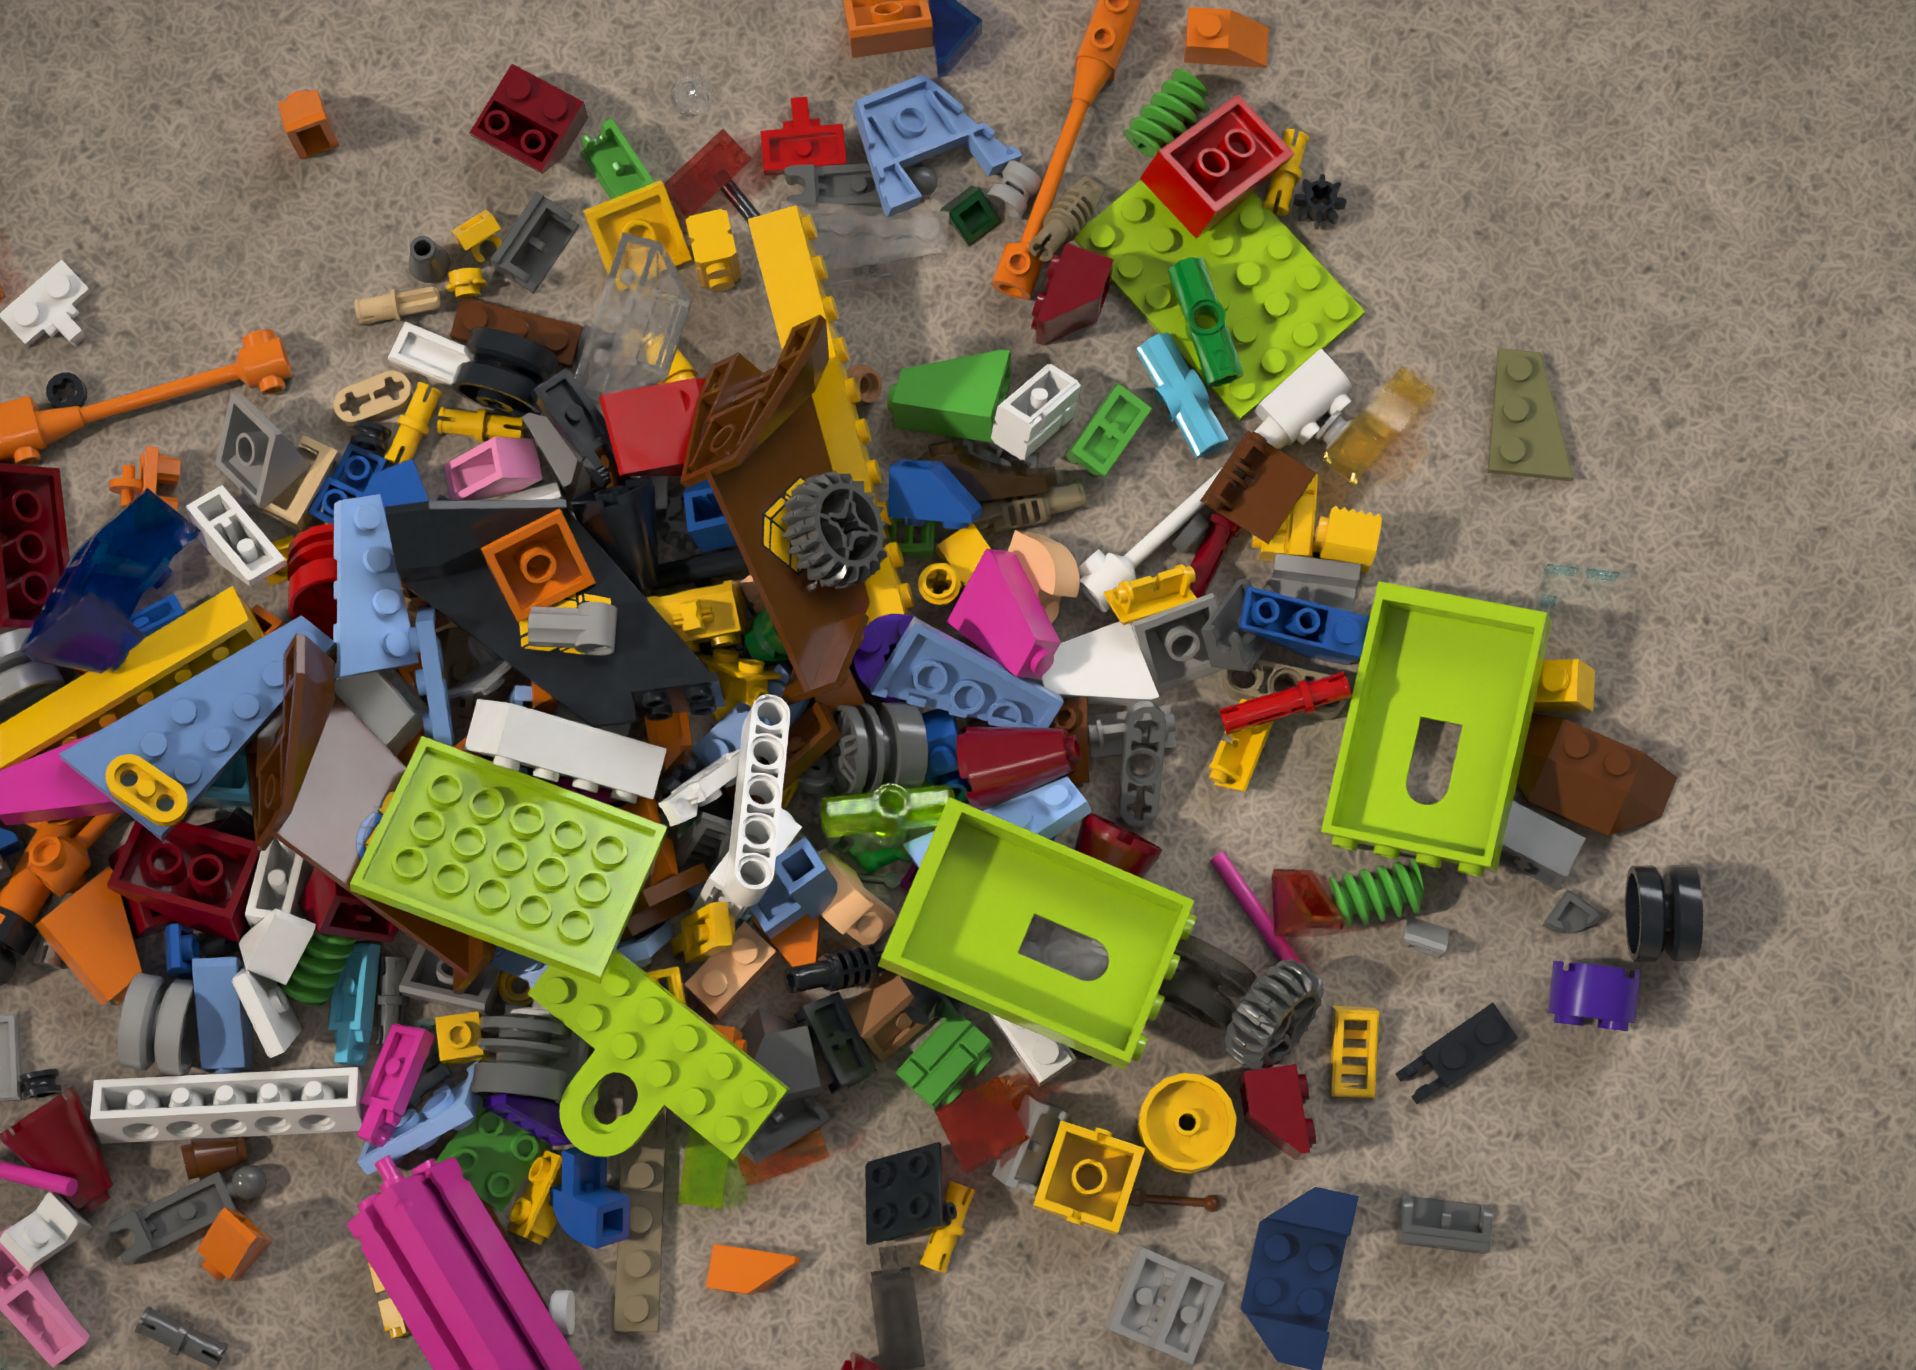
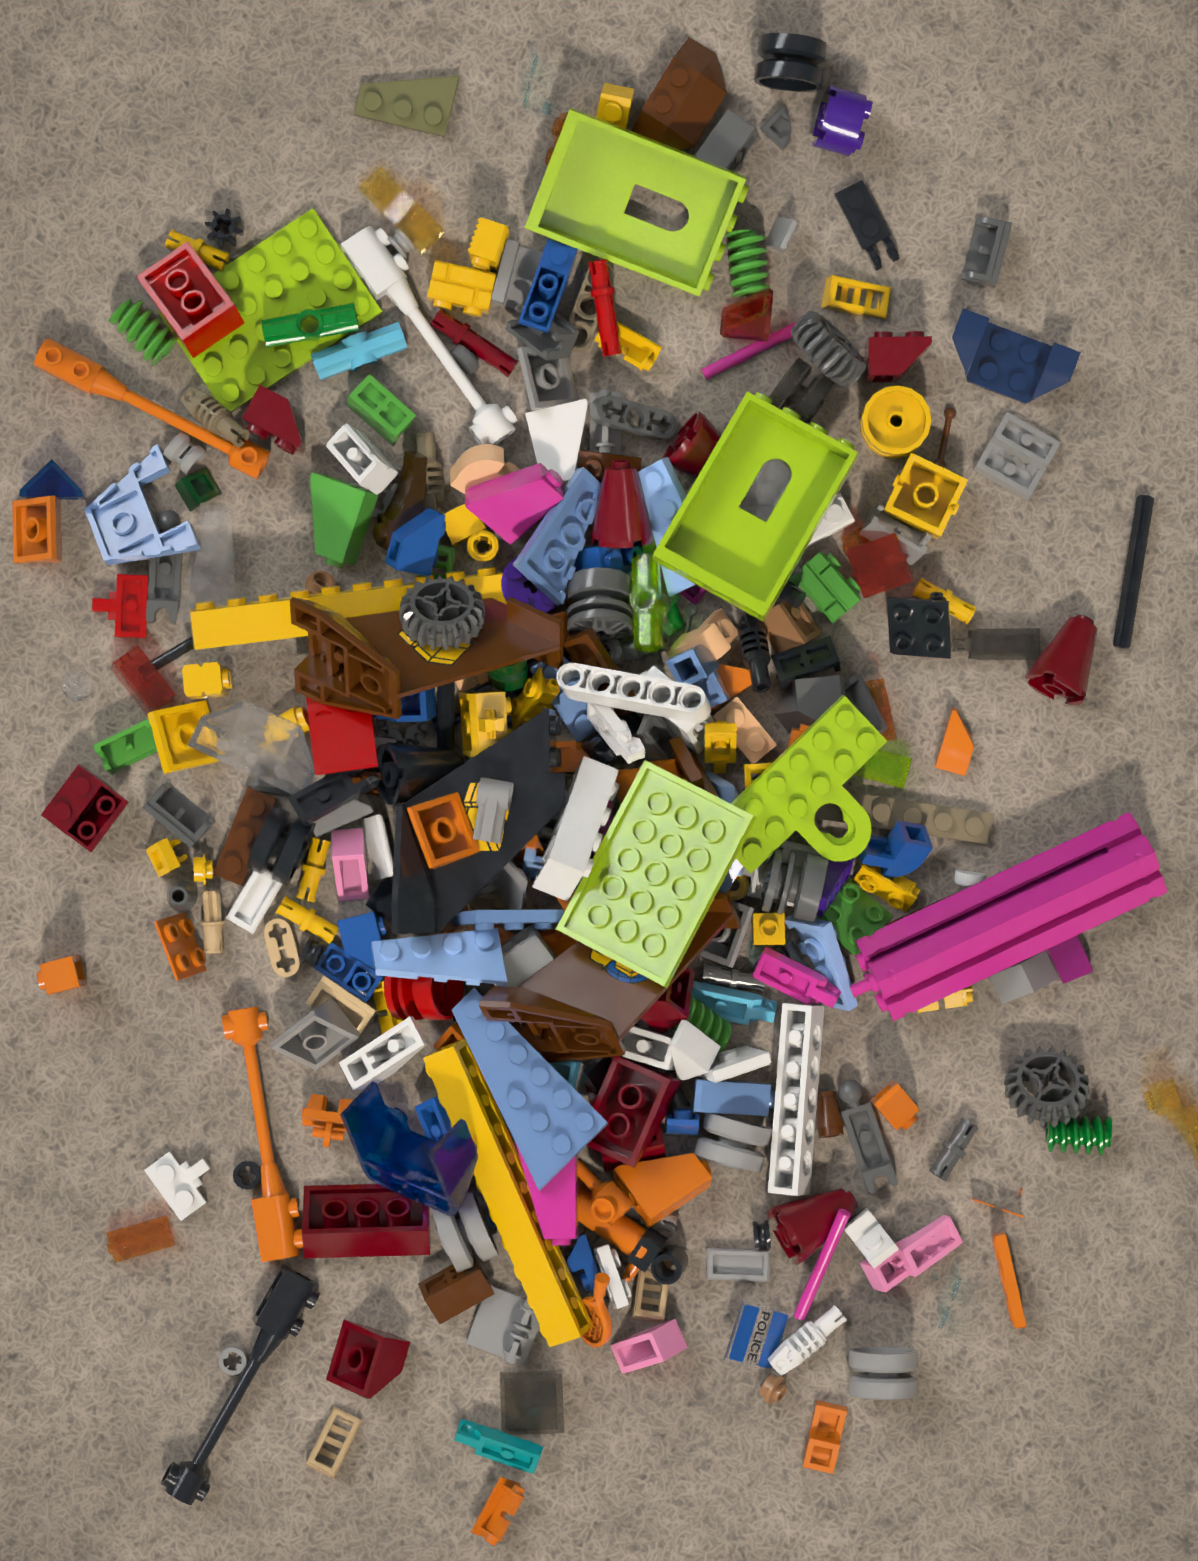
camera: 85 degrees left, 10 degrees up
(147, 791) = (573, 1125): yellow plate -> none
(358, 263) = (180, 946): none -> orange hinge
(1151, 595) = (511, 392): yellow hinge -> none
(1224, 38) = (87, 280): orange slope -> none
(1258, 487) = (441, 304): reddish brown hinge -> none

